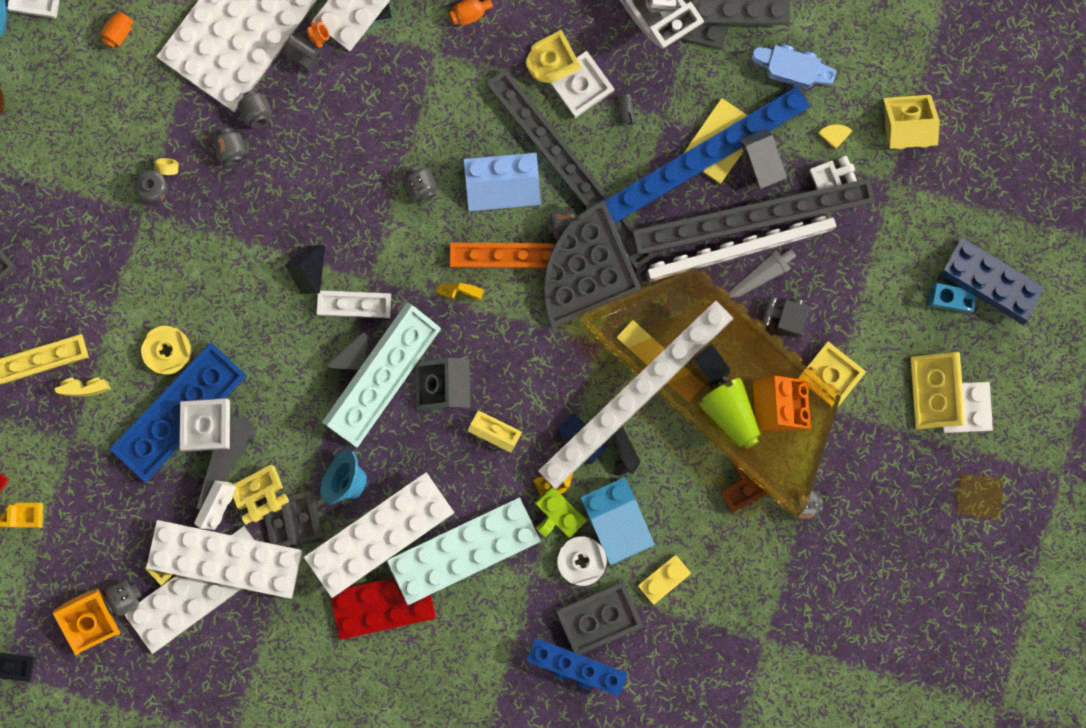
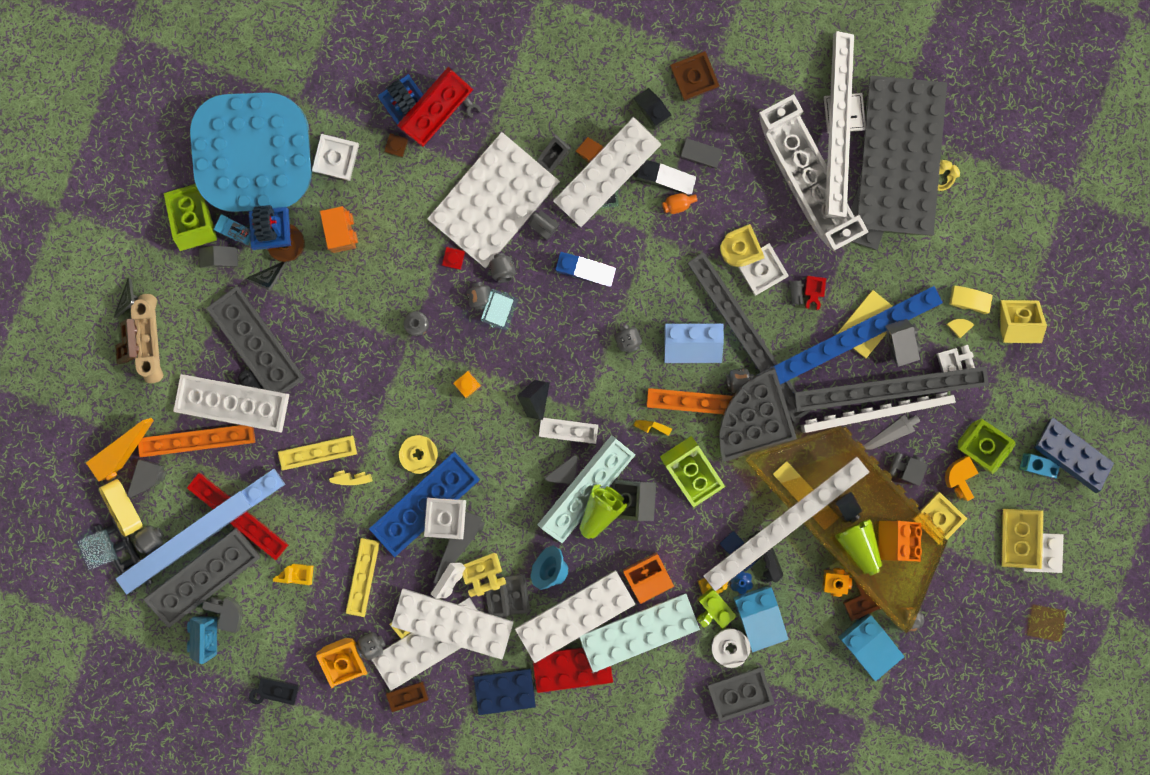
camera: 10 degrees right, 5 degrees up
(45, 77) = (338, 229): none -> orange brick
(106, 512) = (362, 577): none -> light yellow tile
(116, 30) = (397, 194): orange brick -> none
(166, 166) = (428, 308): light yellow tile -> none
(174, 658) = (407, 696): none -> reddish brown plate
(193, 103) = (453, 258): none -> red plate
(221, 256) = (467, 384): none -> light orange brick
(255, 160) = (499, 309): none -> clear light blue piece
(298, 642) = (504, 691): none -> dark blue plate
(318, 33) = (557, 212): orange plate -> none
(358, 102) = (585, 269): none -> slope
(401, 400) = (601, 510): none -> lime cone
(469, 481) = (648, 578): none -> orange slope
(494, 431) = (671, 540): light yellow plate -> none
(514, 342) = (692, 471): none -> lime slope
(580, 668) = (722, 733): blue bracket -> none
(588, 484) = (741, 588): none -> blue plant
(649, 103) = (814, 288): none -> red plate
(664, 579) = (793, 667): light yellow plate -> none
(698, 464) = (830, 579): none -> light orange brick
(761, 544) = (871, 646): none -> dark azure slope
(793, 67) = (932, 270): light blue hinge -> none
(844, 98) = (970, 299): none -> light yellow slope
(849, 316) = (957, 474): none -> light orange brick
(881, 278) = (986, 445): none -> lime slope

